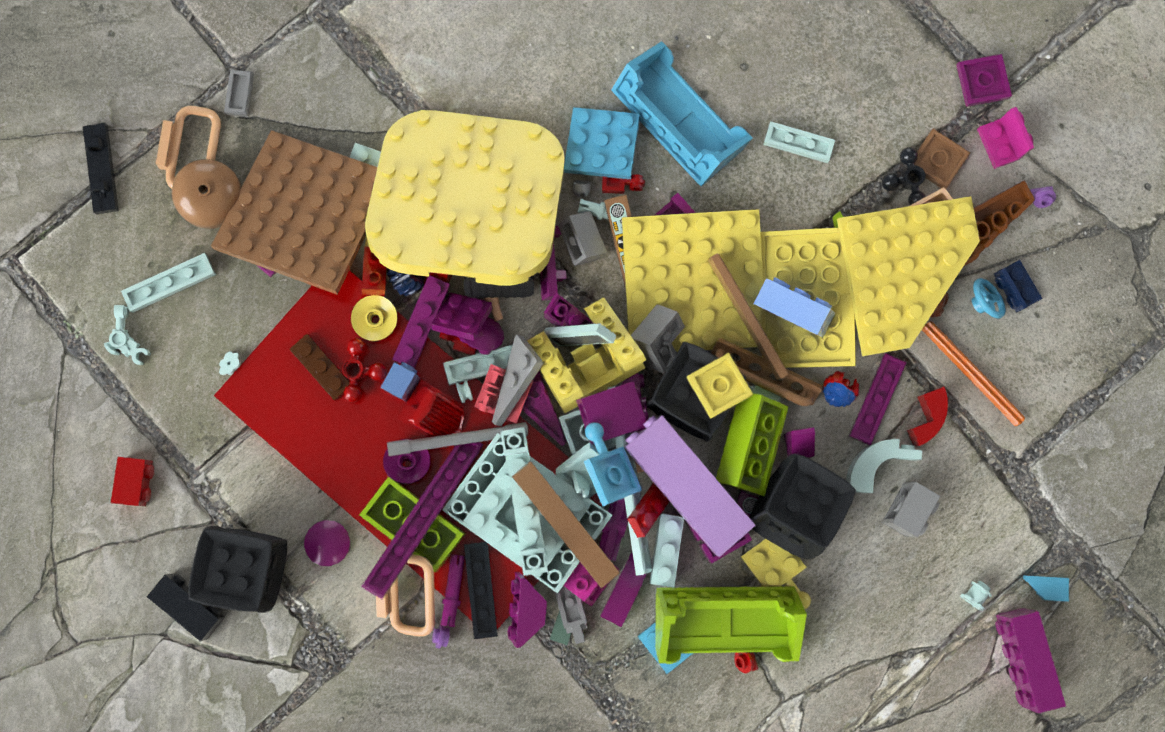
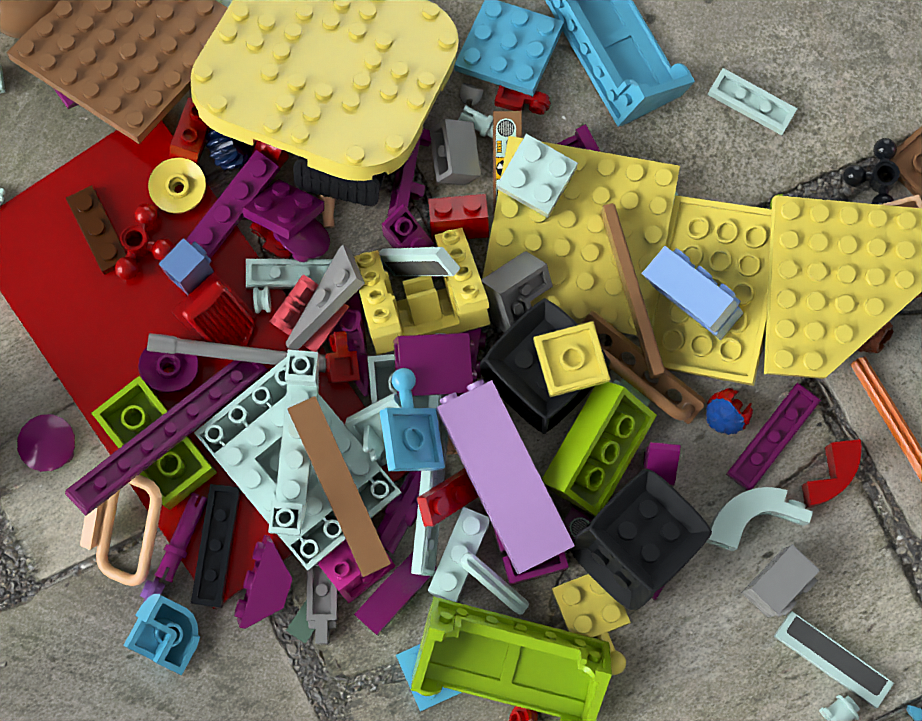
camera: 20 degrees right, 5 degrees down
(460, 666) = (164, 633): none -> medium azure brick
(540, 426) = (341, 364): none -> red plate
(598, 286) = (459, 212): none -> red brick
(653, 245) = (537, 175): none -> light aqua brick
(698, 565) = (494, 583): none -> light aqua axle
(962, 556) = (833, 659): none -> tile

